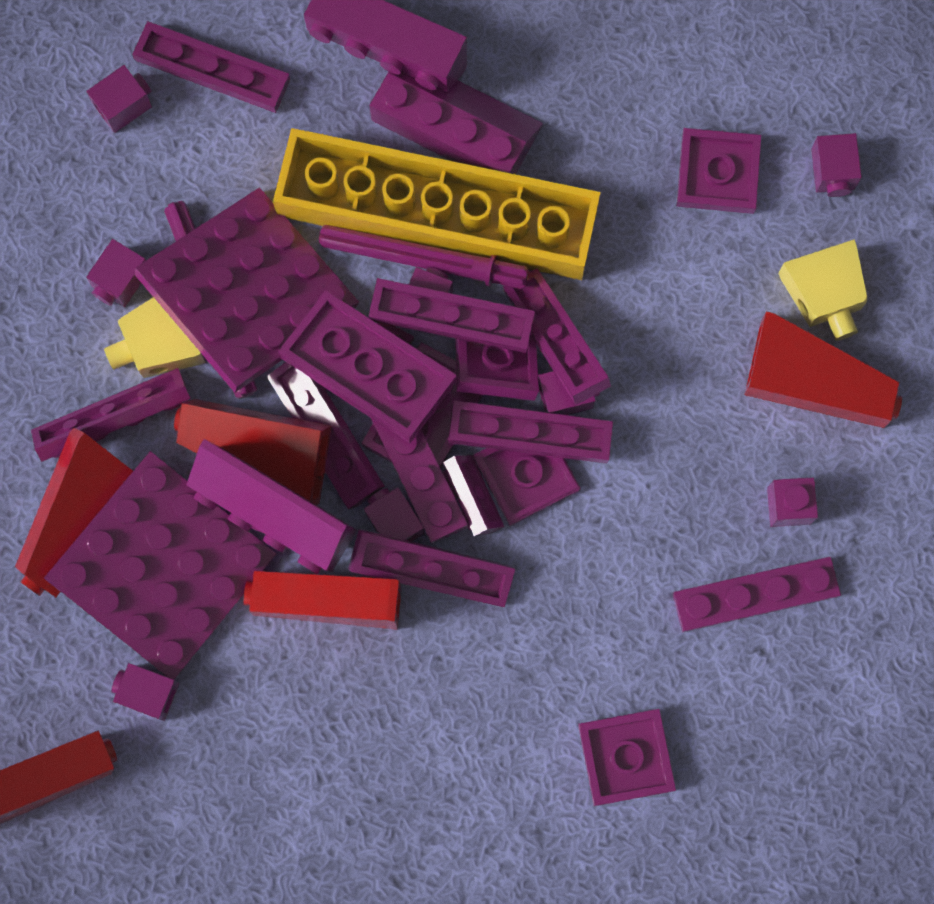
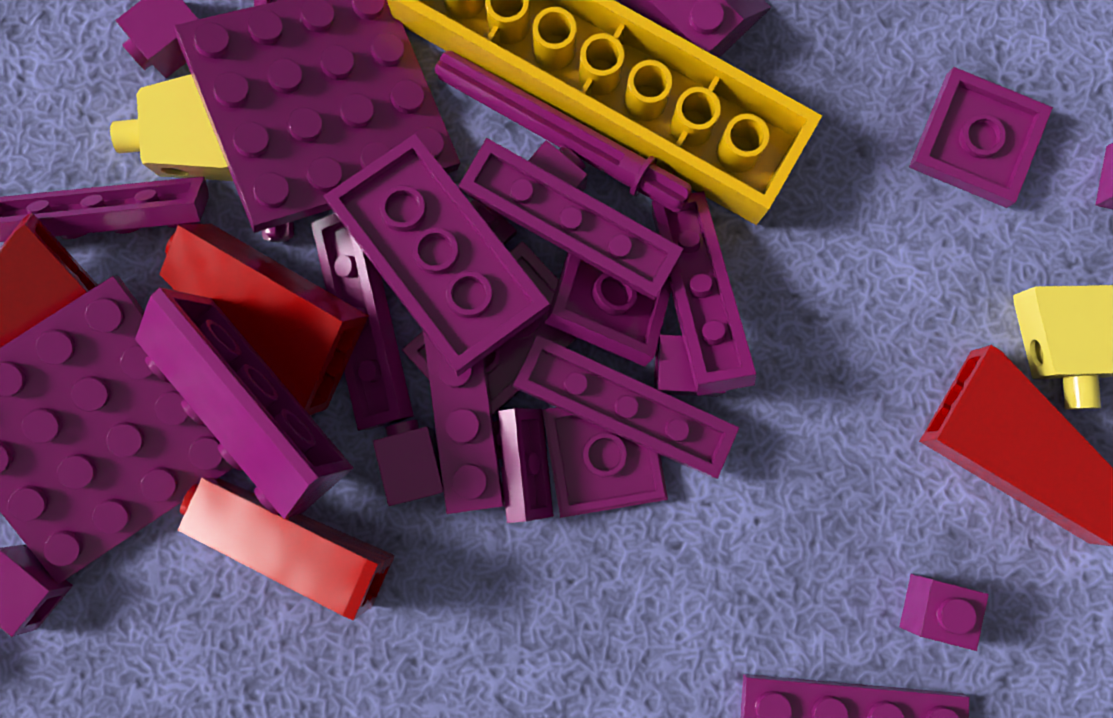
camera: 15 degrees right, 5 degrees up
(431, 568) = (433, 549): magenta plate -> none

